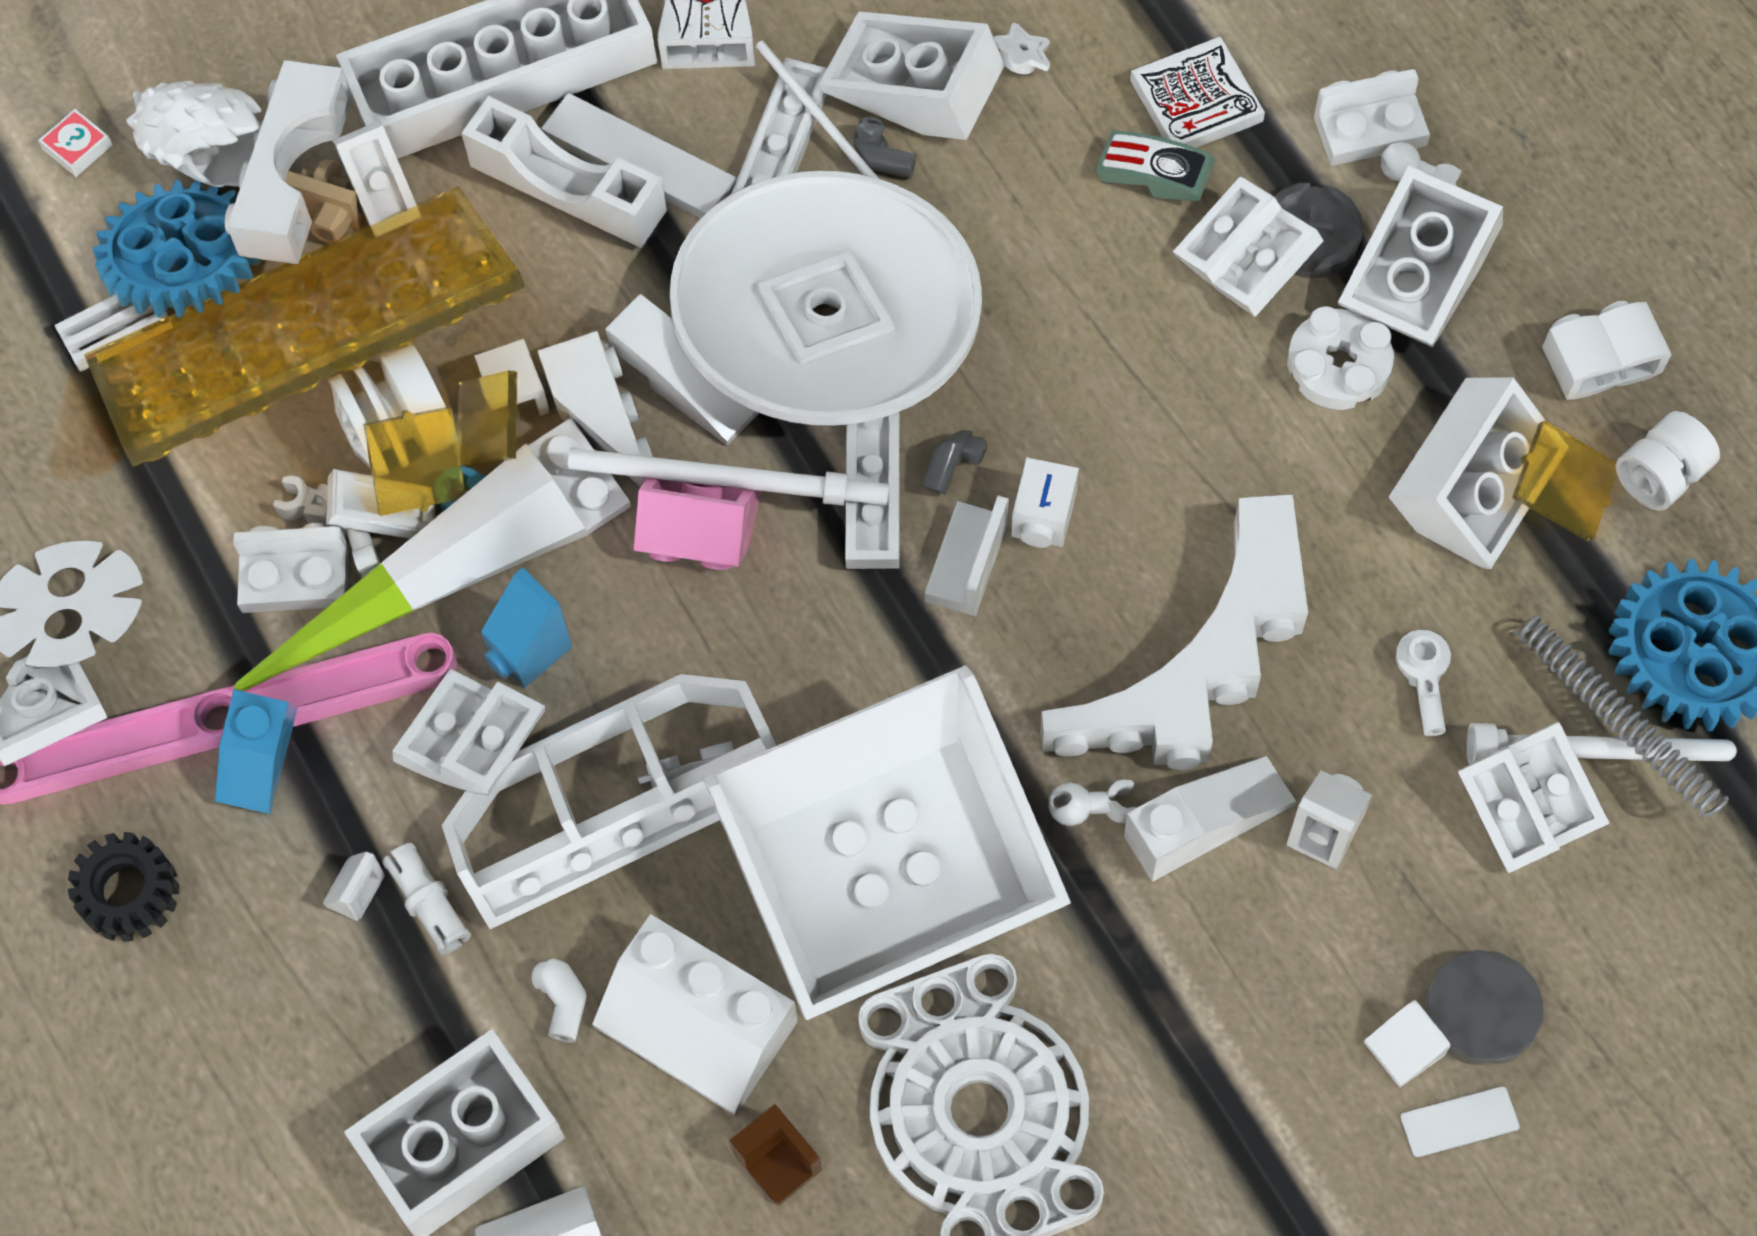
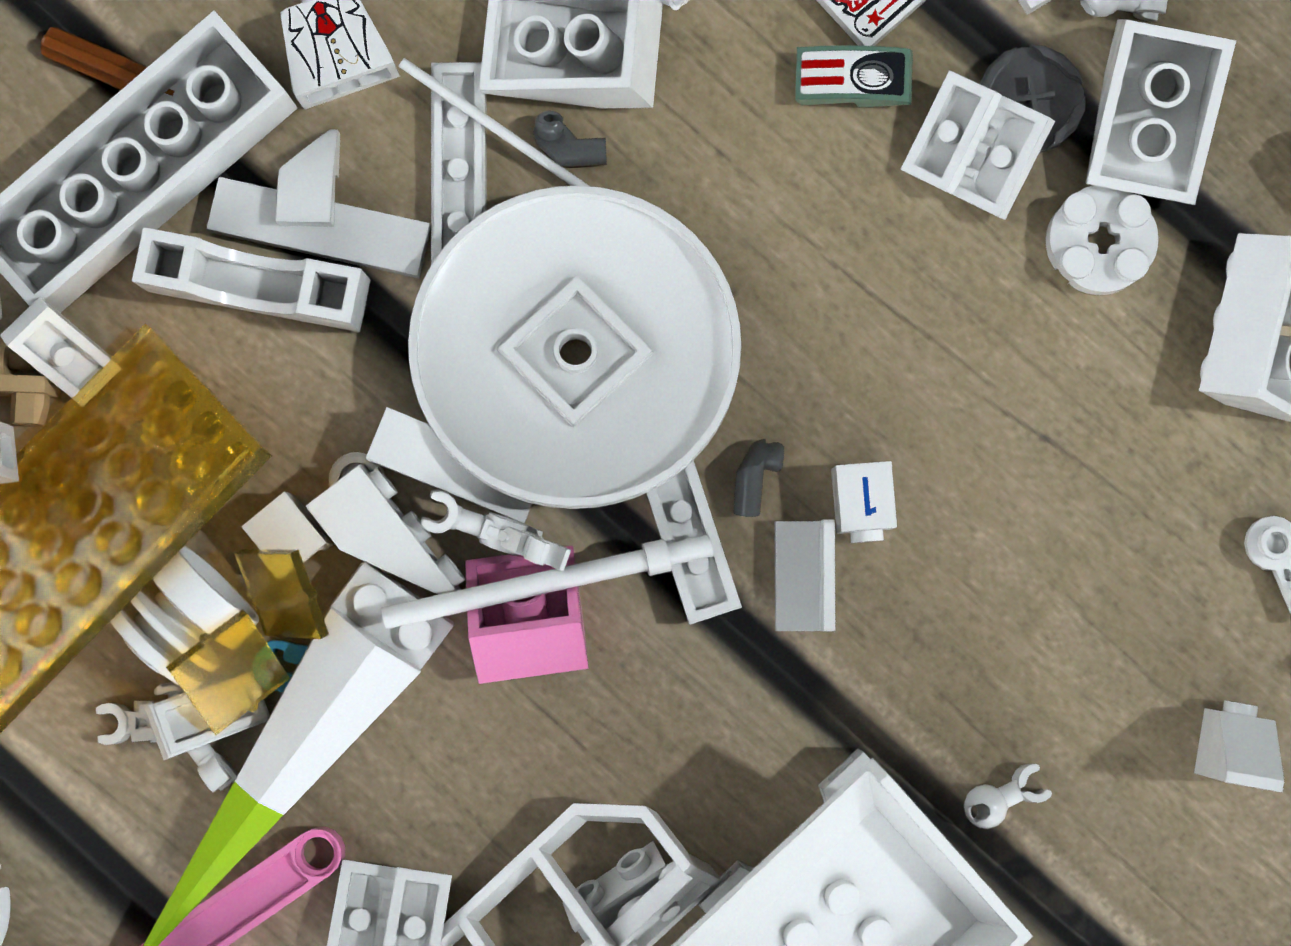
camera: 20 degrees left, 20 degrees up
(291, 567) = (145, 805): white bracket -> none
(525, 631) = (404, 809): dark azure slope -> none
(642, 118) = (308, 184): none -> white slope
(699, 428) = (498, 533): none -> white piece
(1204, 815) = (1118, 776): white slope -> none
(1221, 662) = (1053, 680): white arch -> none

